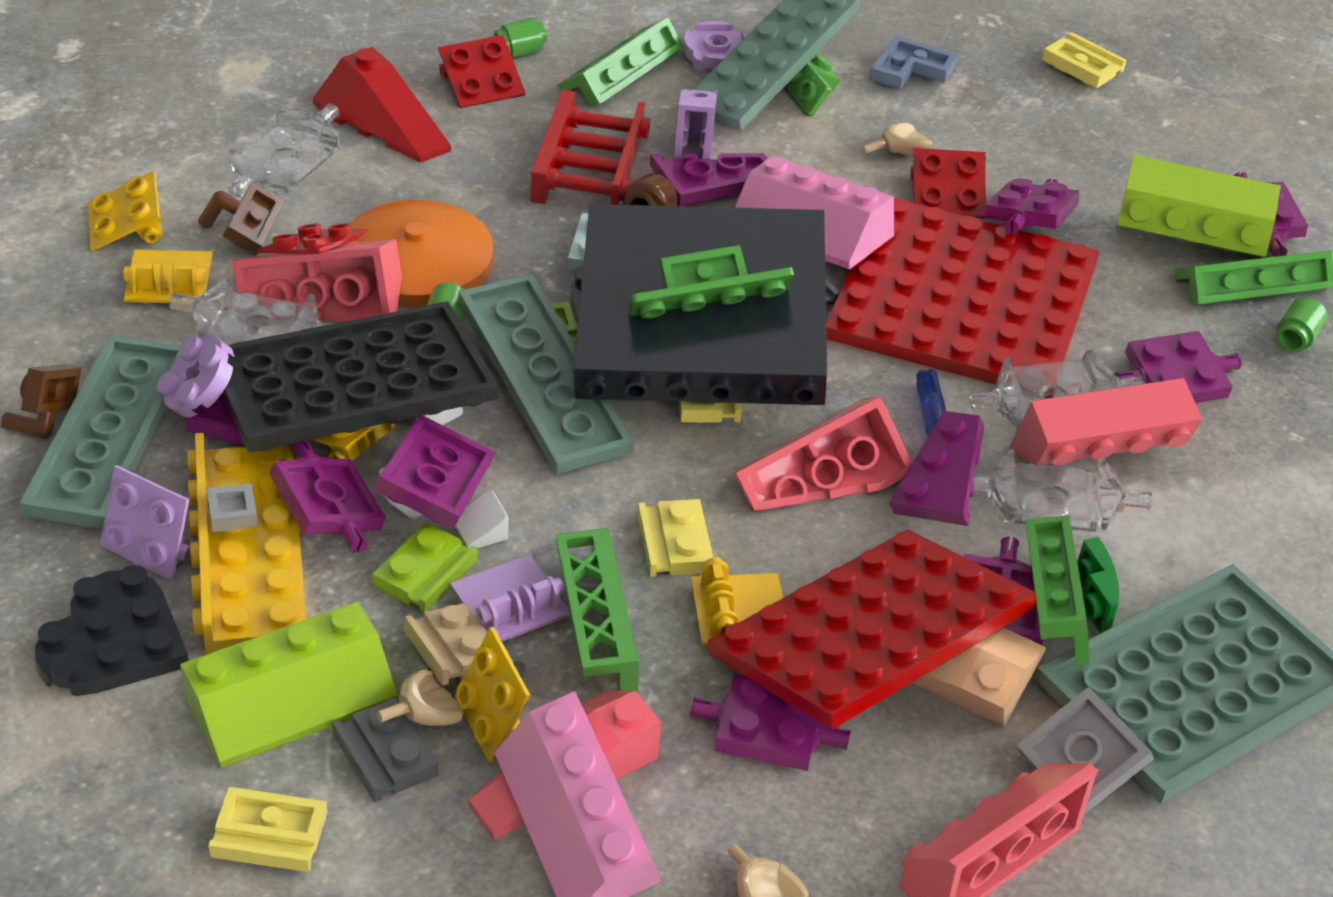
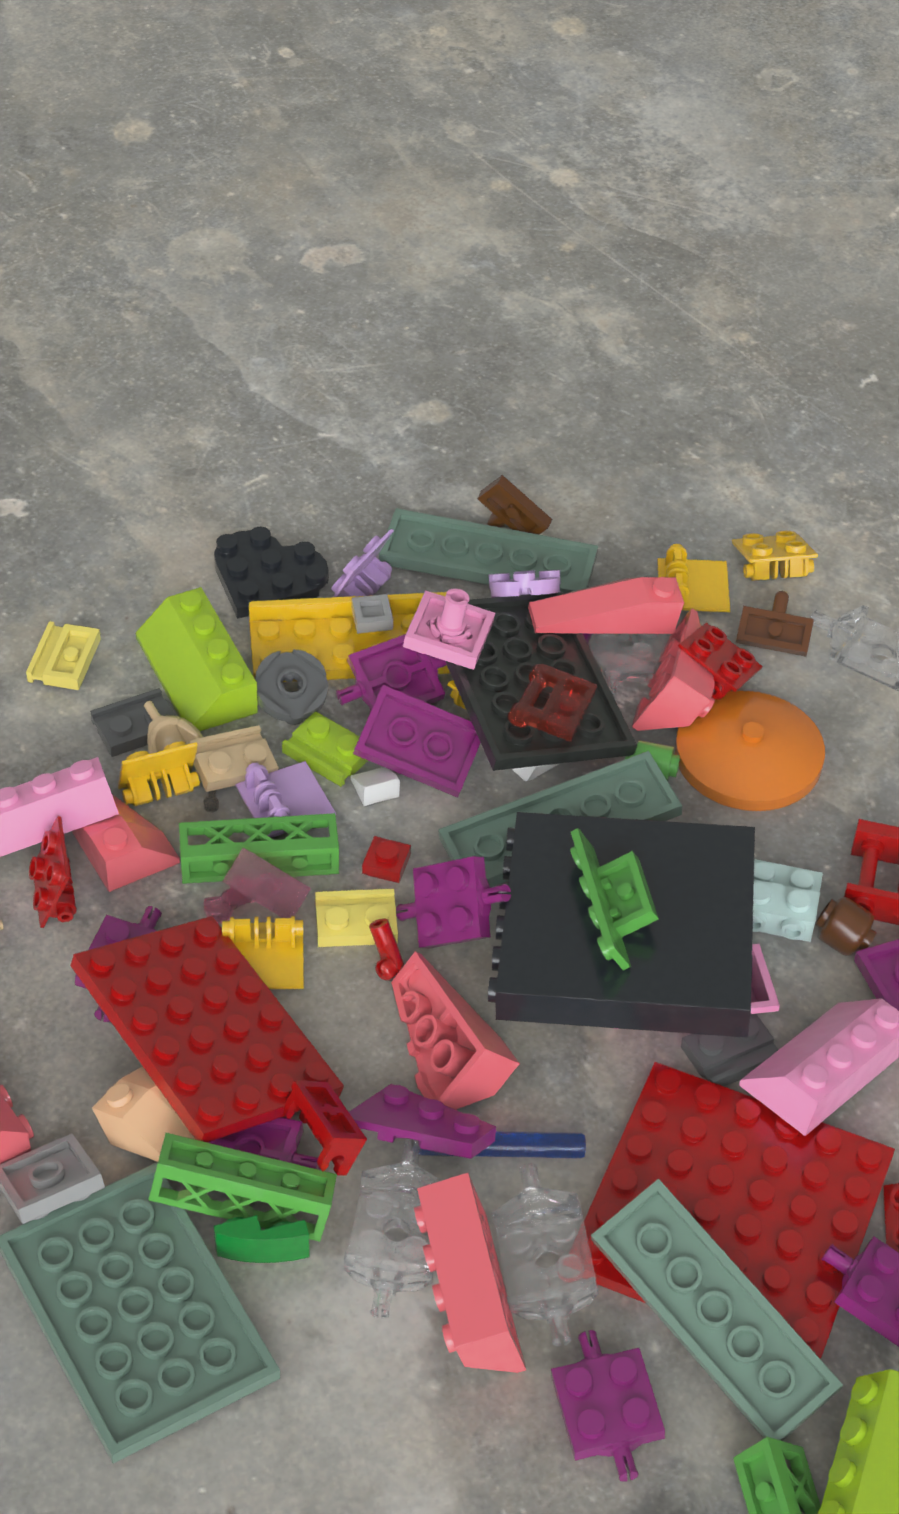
camera: 95 degrees right, 5 degrees up
(238, 302) = (615, 607): none -> coral wedge
(308, 405) = (449, 628): none -> bright pink plate
(321, 576) = (287, 666): none -> dark grey plate
(413, 330) = (563, 708): none -> clear red plate
(589, 512) = (386, 859): none -> red plate
(657, 595) = (266, 884): none -> clear pink plate
(673, 781) = (53, 878): none -> red hinge
(676, 649) = (222, 906): none -> clear pink piece
(682, 433) = (452, 902): none -> magenta plate
(726, 506) = (387, 947): none -> red arm
(980, 519) = (328, 1122): none -> red hinge
(1086, 291) = (716, 1313): none -> sand green plate

